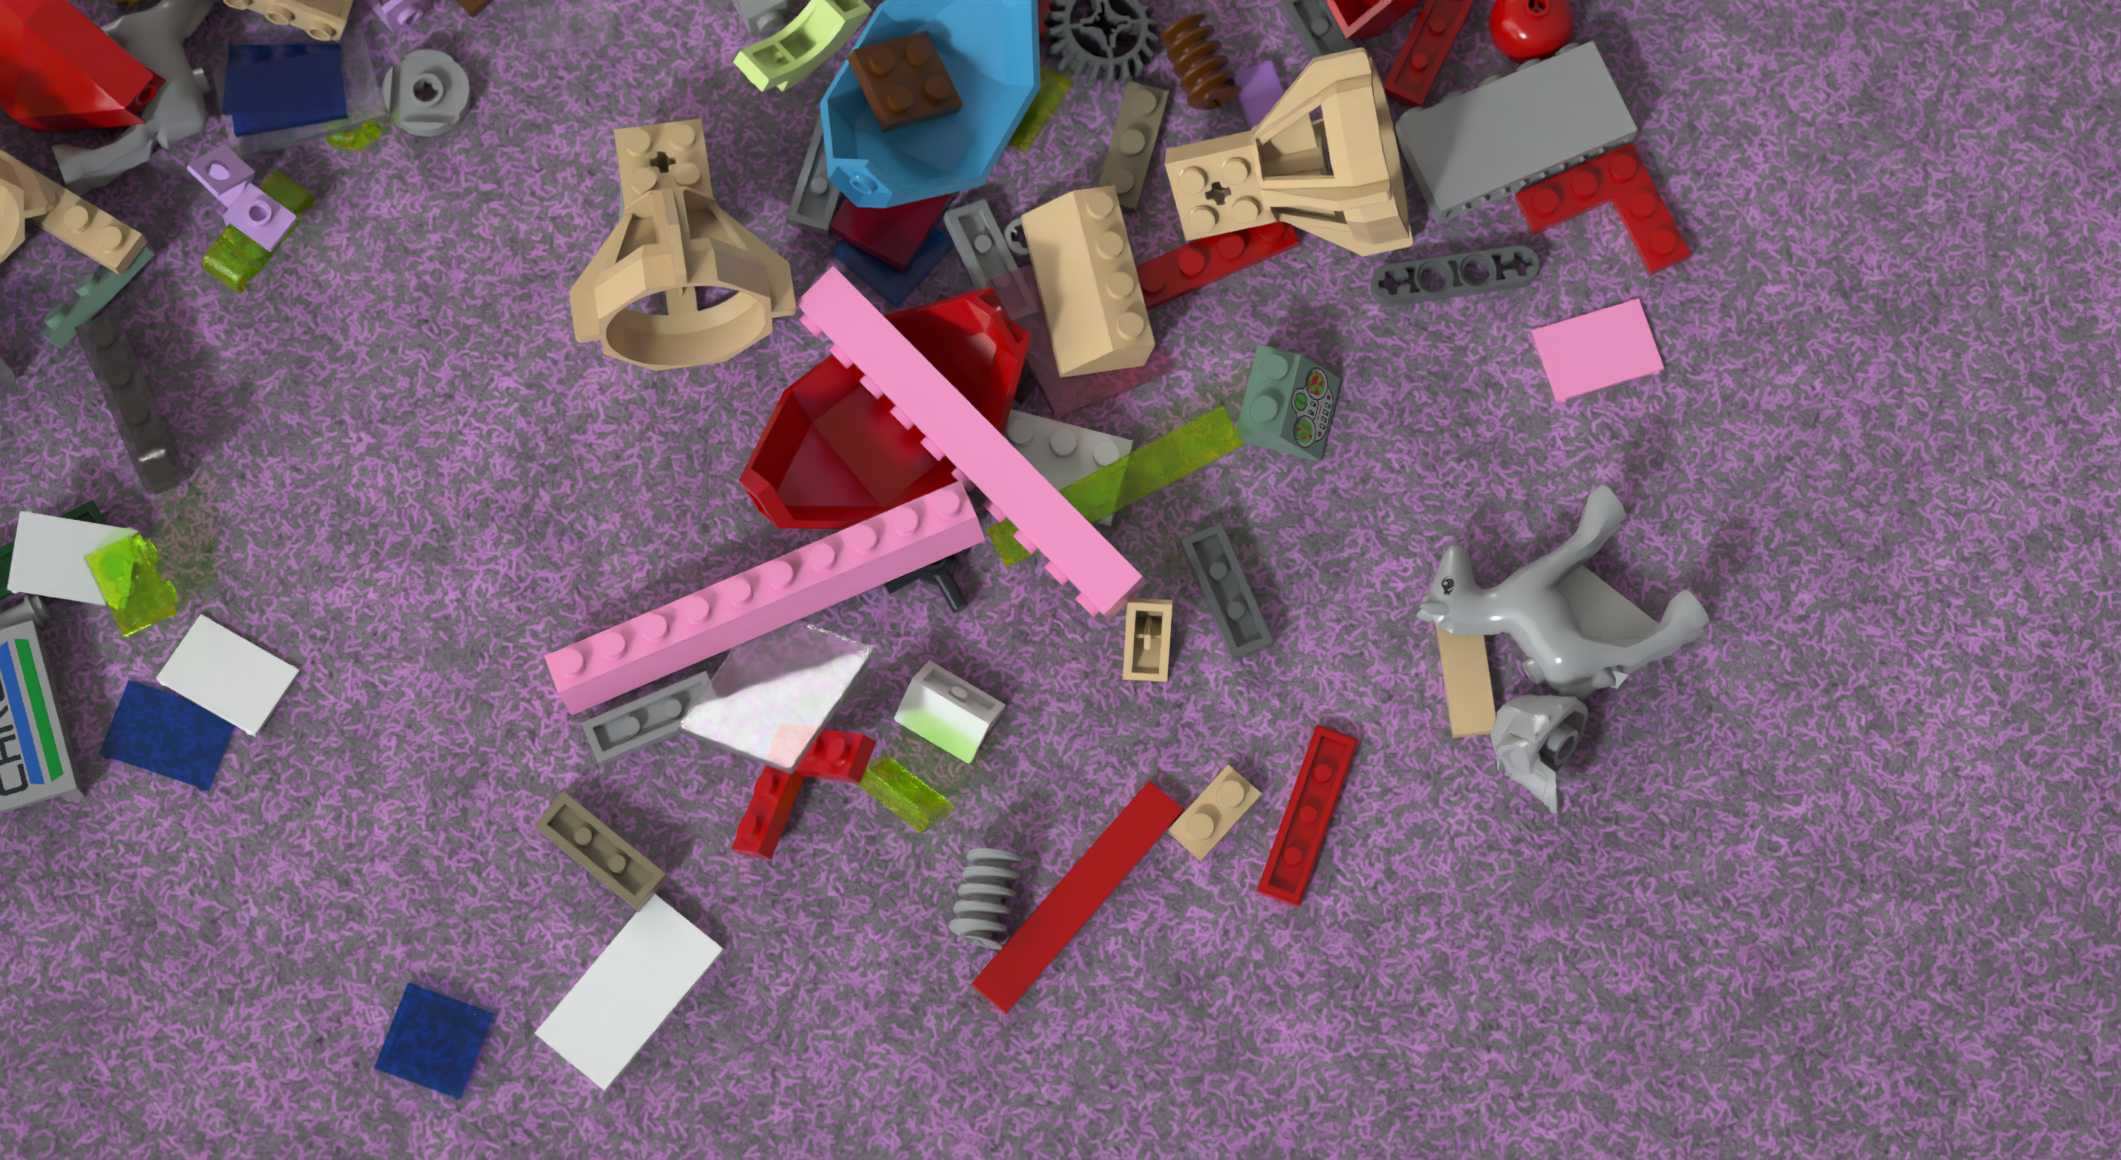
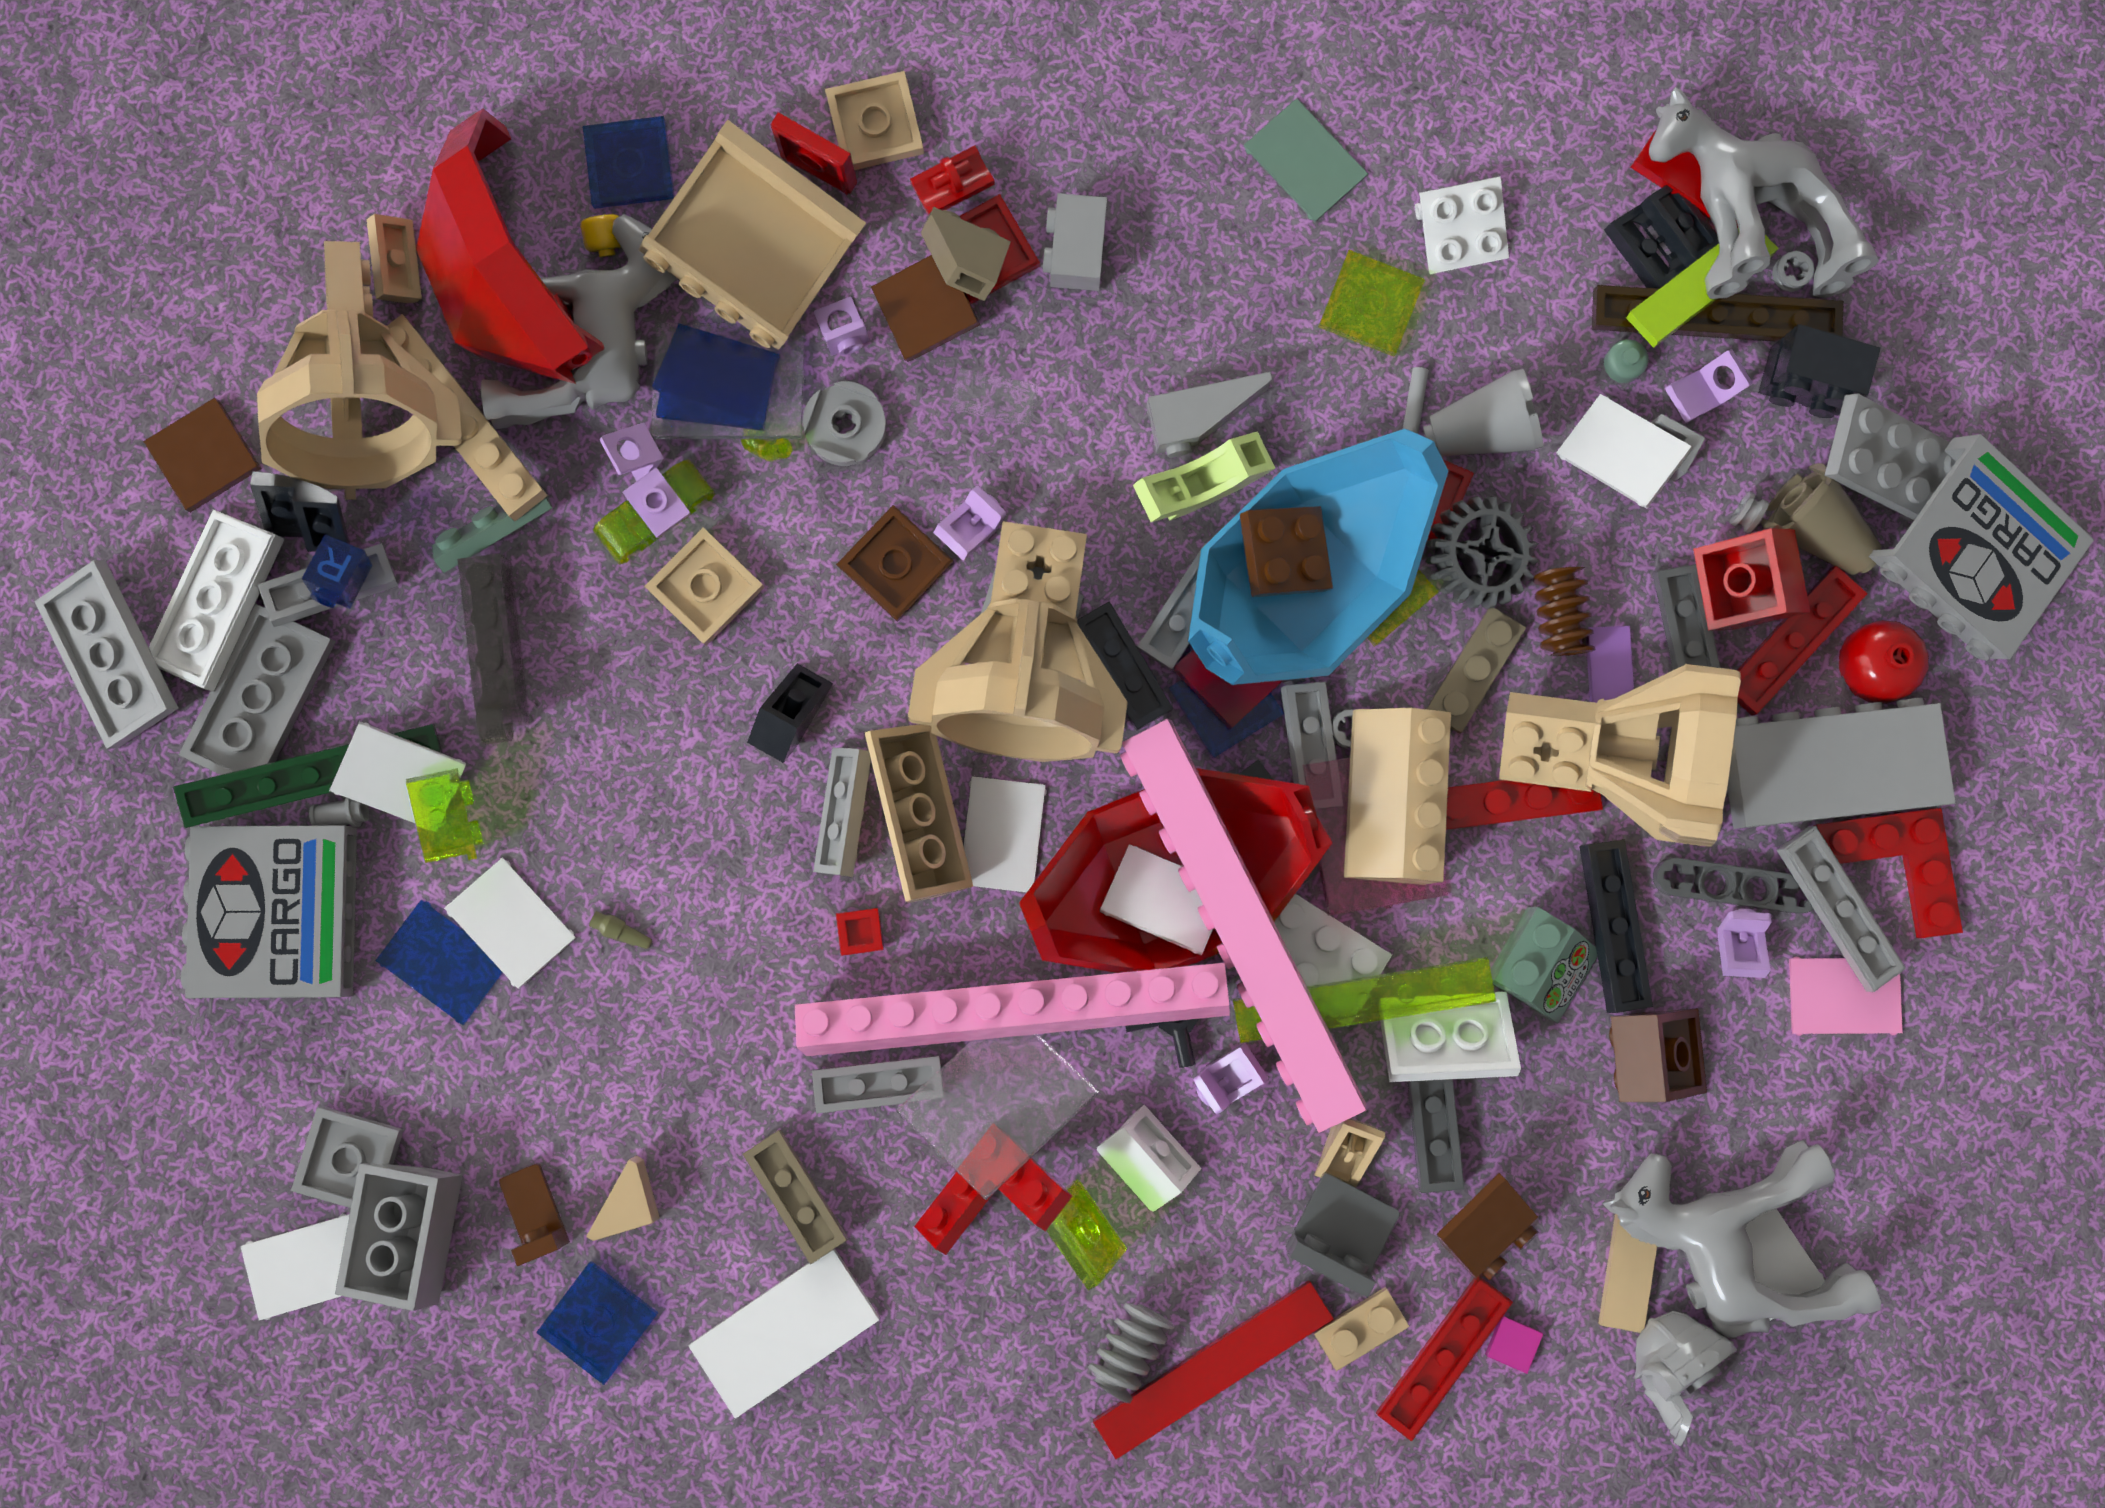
camera: 15 degrees right, 10 degrees up
(113, 1079) = (295, 1267): none -> white piece
(128, 955) = (336, 1148): none -> light grey plate
(204, 1005) = (398, 1235): none -> light grey slope
(331, 289) = (704, 586): none -> tan plate
(335, 949) = (533, 1214): none -> reddish brown bracket
(340, 649) = (616, 929): none -> olive piece
(430, 911) = (628, 1204): none -> tan slope
(453, 386) = (788, 712): none -> black slope
(518, 213) = (895, 563): none -> reddish brown tile
(536, 464) = (842, 811): none -> light grey plate
(583, 150) = (971, 523): none -> lavender bracket
(589, 576) = (860, 931): none -> red plate
(614, 436) = (919, 811): none -> tan slope
(704, 442) = (1003, 833): none -> white piece
(758, 217) = (1125, 665): none -> black plate
(881, 454) = (1154, 899): none -> white piece
(1006, 605) = (1229, 1078): none -> lavender bracket
(1166, 720) = (1342, 1233): none -> dark grey bracket
(1215, 500) = (1452, 1043): none -> white plate
(1305, 666) = (1489, 1229): none -> reddish brown slope
(1346, 347) = (1616, 926): none -> black plate
(1373, 781) = (1514, 1344): none -> dark pink tile
(1427, 456) = (1658, 1055): none -> reddish brown slope
(1478, 325) = (1744, 944): none -> lavender bracket
(1562, 264) = (1841, 909): none -> light grey tile

